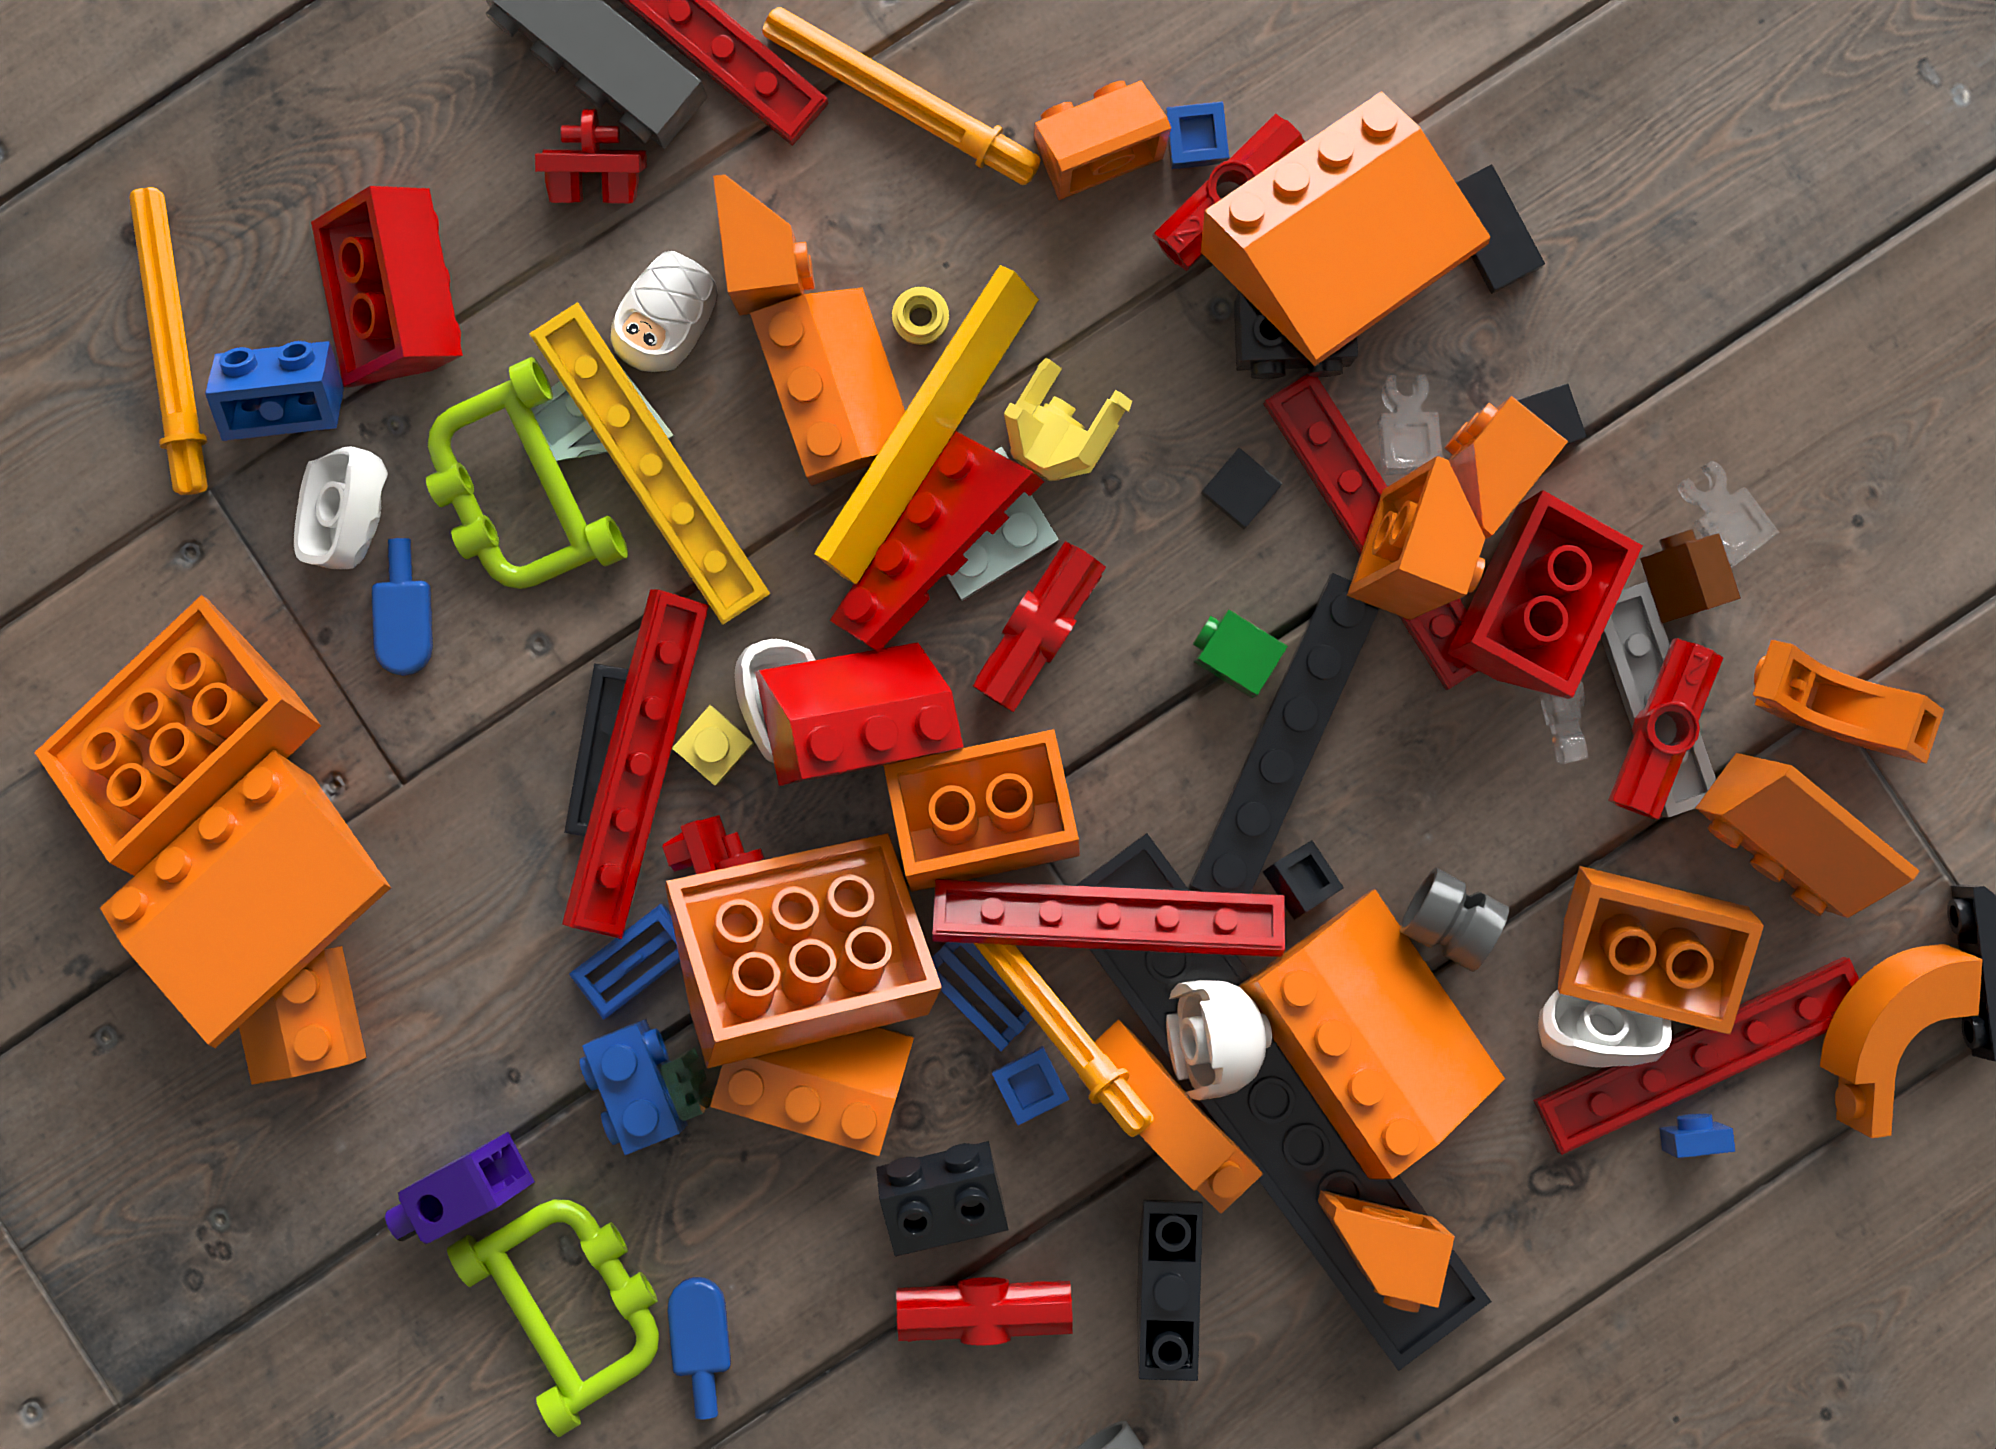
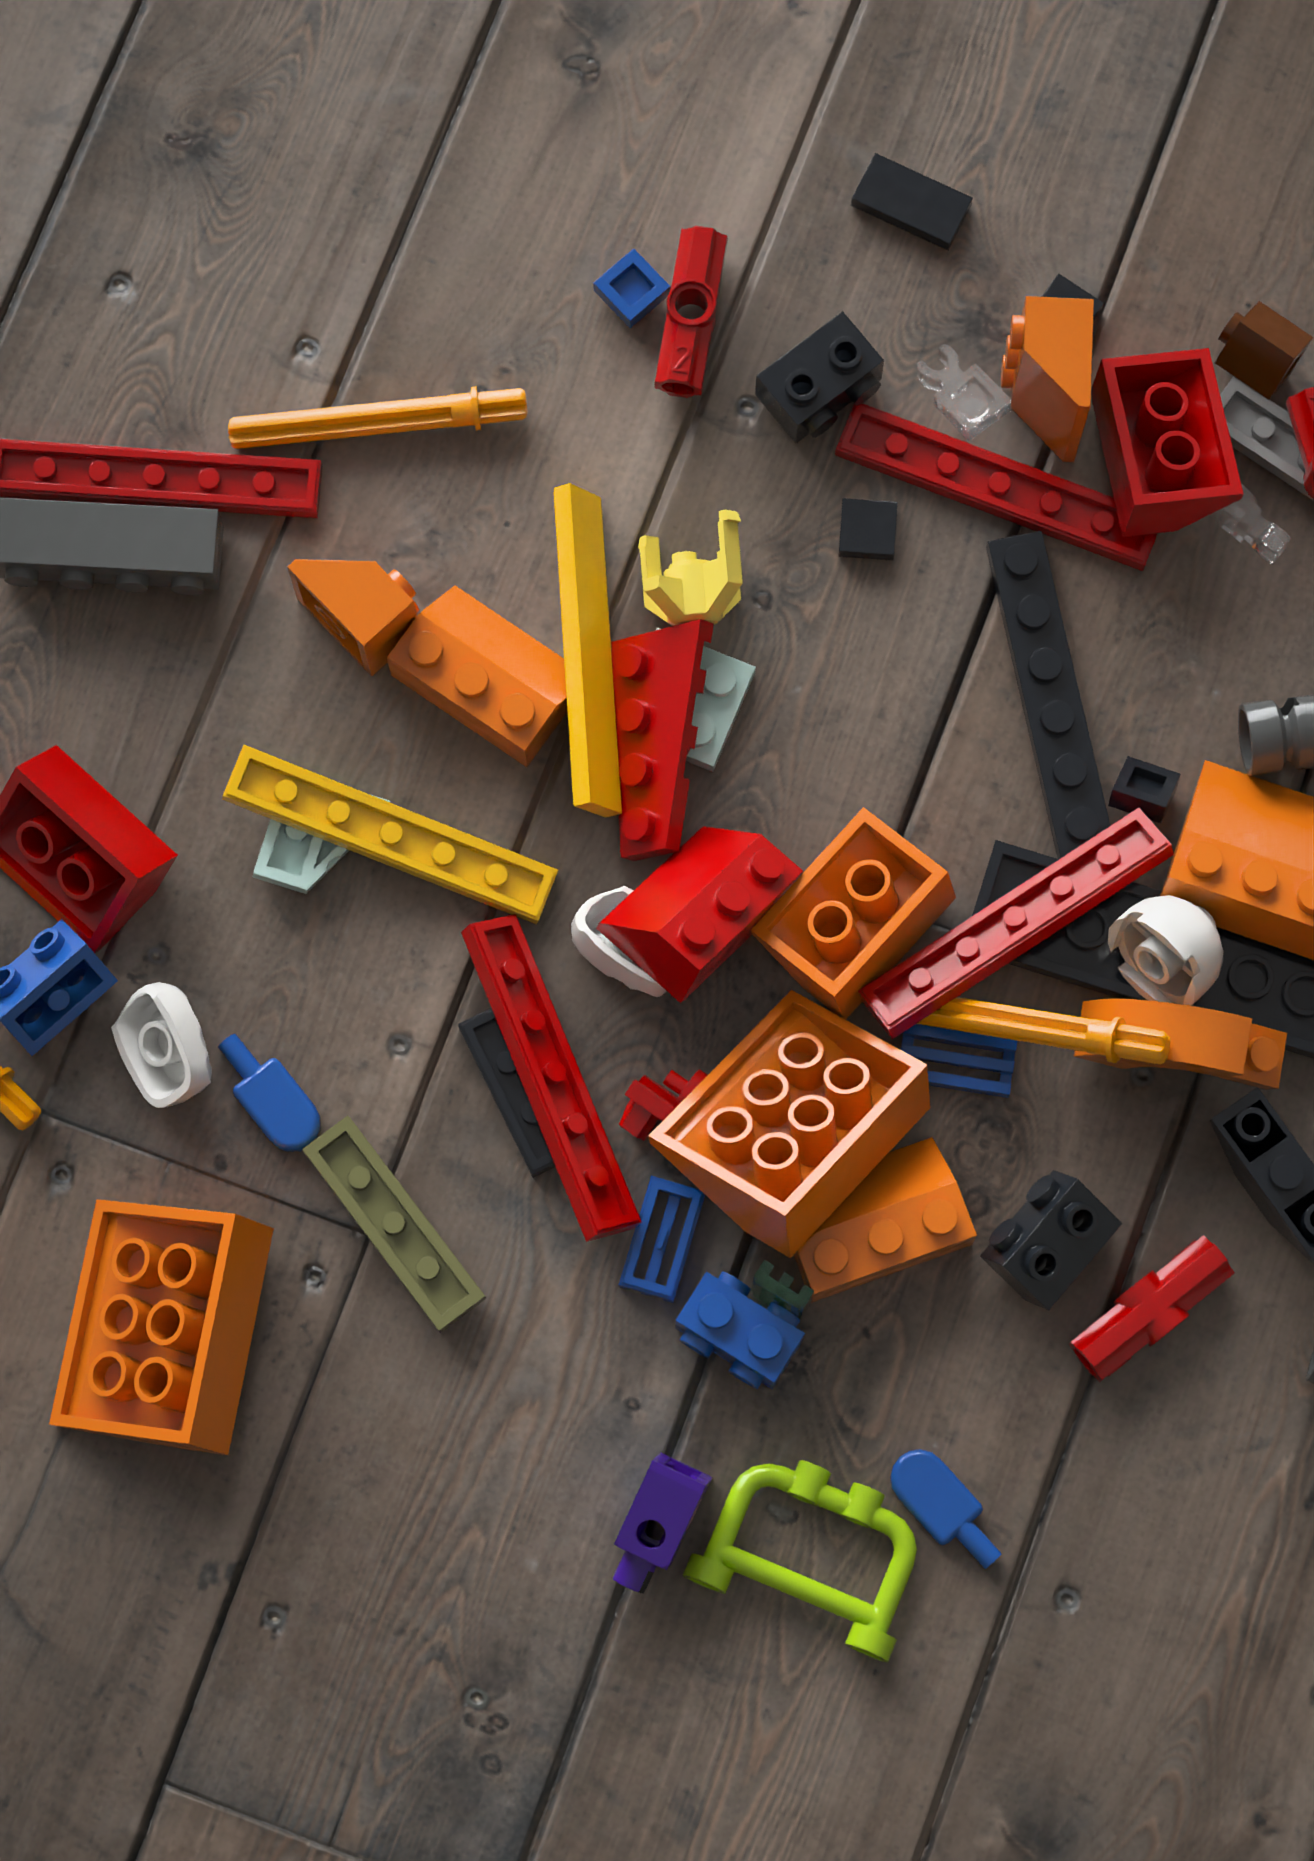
camera: 30 degrees left, 10 degrees down
(245, 897) = (317, 1399): orange slope -> none
(305, 1024) = (418, 1479): orange slope -> none
(422, 792) = (394, 1224): none -> olive plate
(477, 534) = (286, 990): lime bar -> none
(565, 166) = (194, 626): red hips -> none
(663, 313) = (312, 713): white piece -> none
(713, 745) = (600, 1022): light yellow plate -> none
(920, 298) = (517, 558): light yellow plate -> none
(1030, 1085) = (1053, 1104): blue plate -> none
(1039, 626) = (790, 743): red piece -> none
(1101, 137) = (560, 339): orange slope -> none
(1238, 652) = (961, 652): green brick -> none
(1343, 229) = (801, 274): orange slope -> none
(1420, 545) = (1040, 461): orange slope -> none
(1734, 516) = (1261, 281): clear plate -> none

